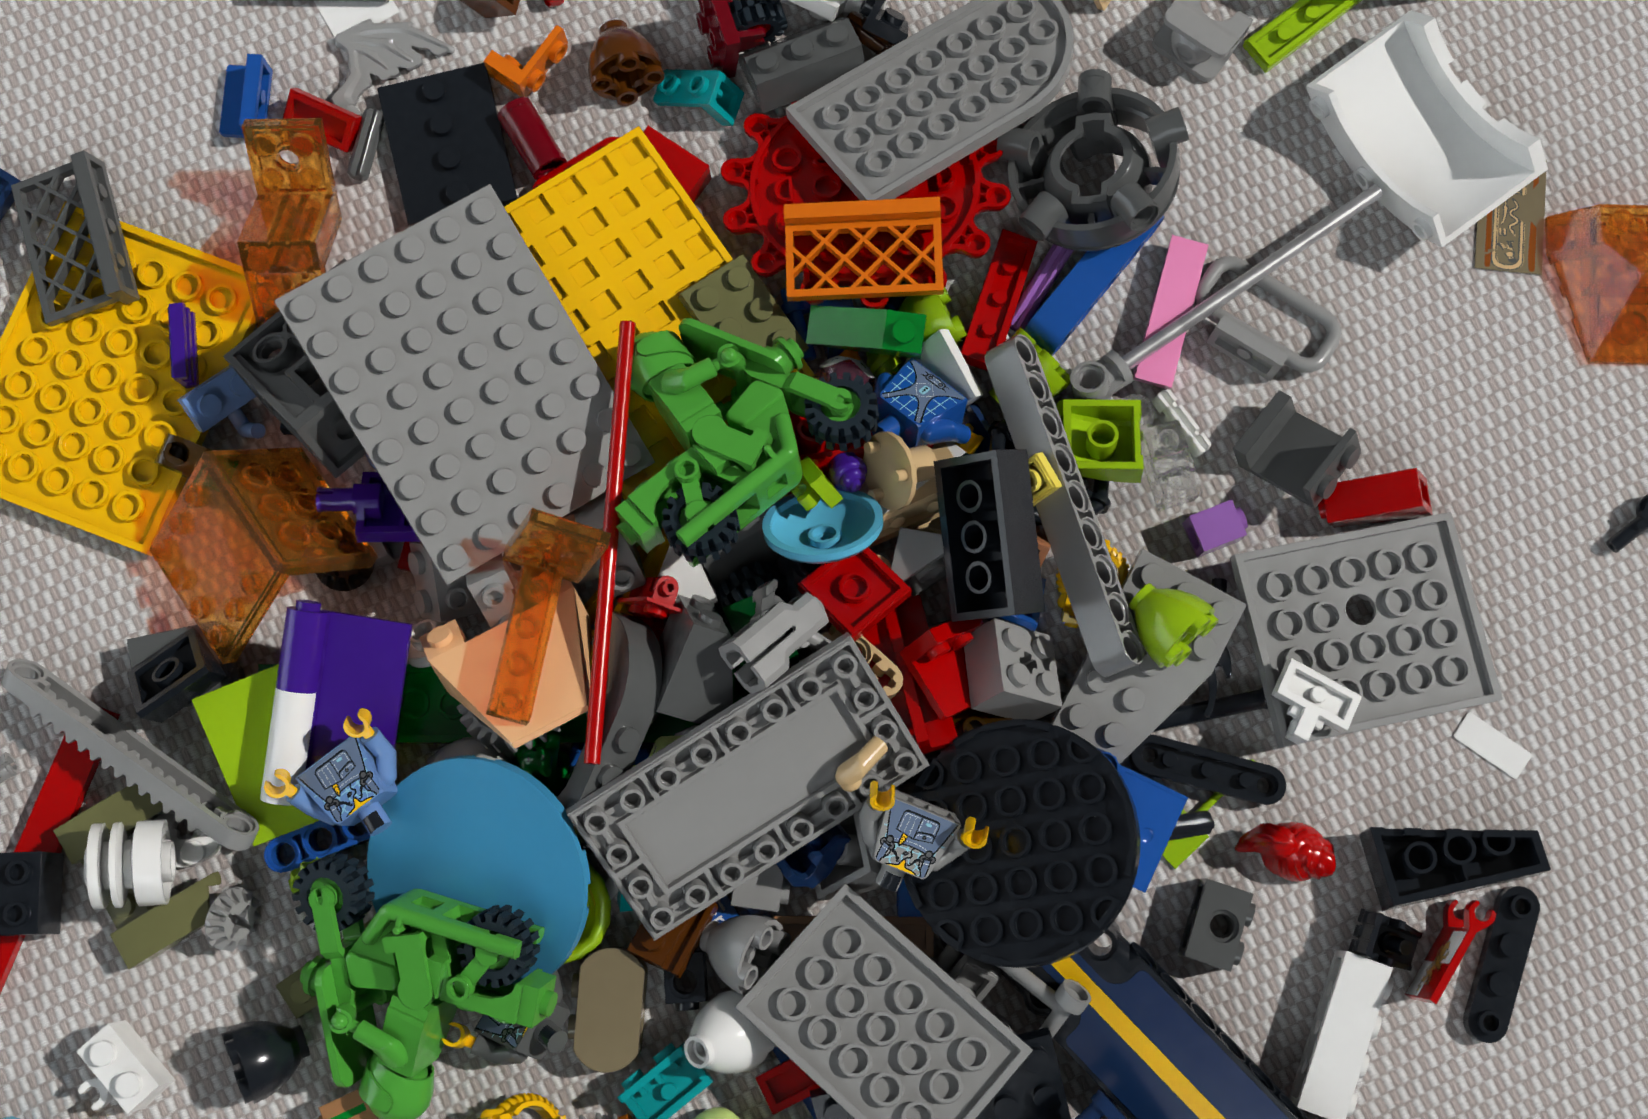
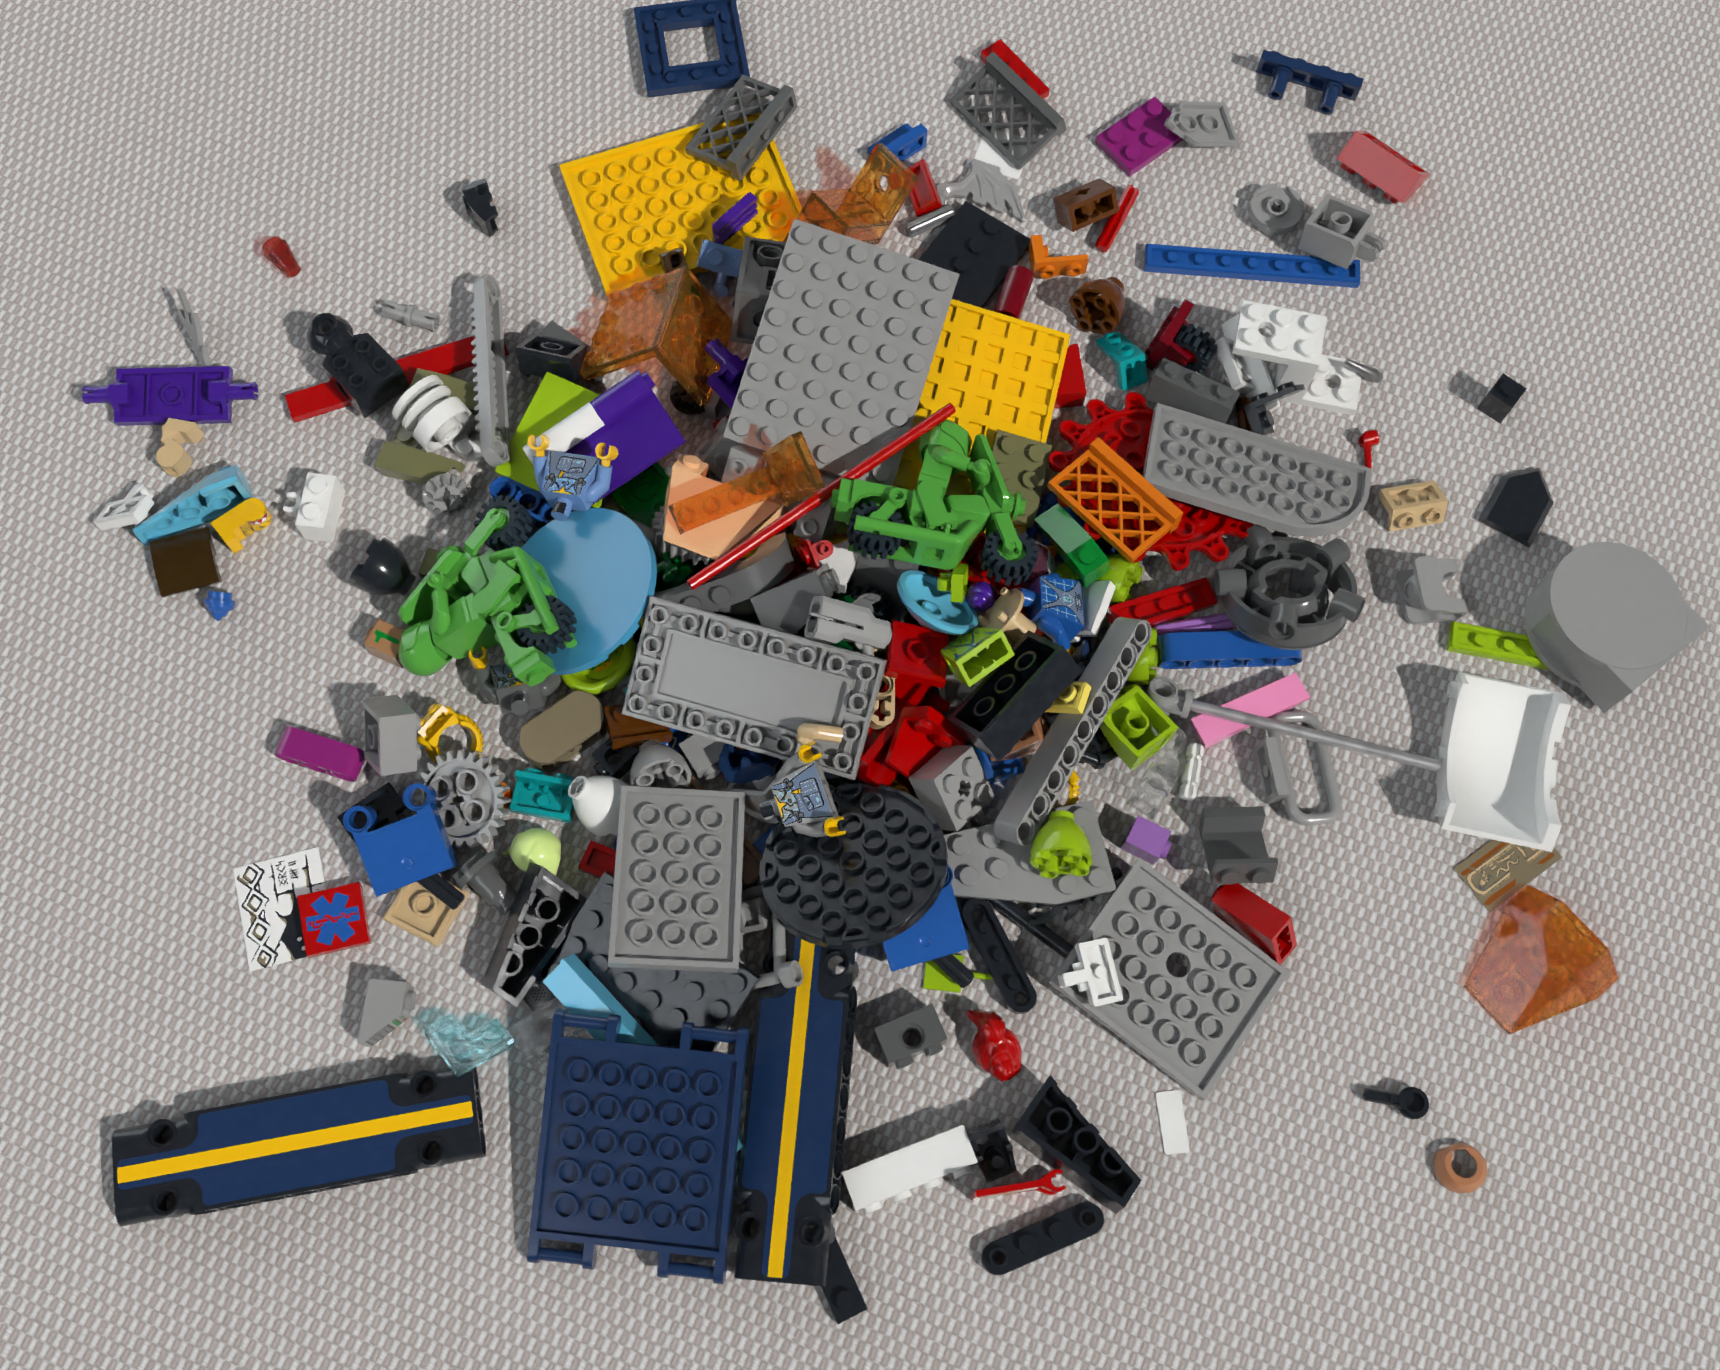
camera: 45 degrees right, 10 degrees down
(914, 535) = (972, 657): none -> lime torso

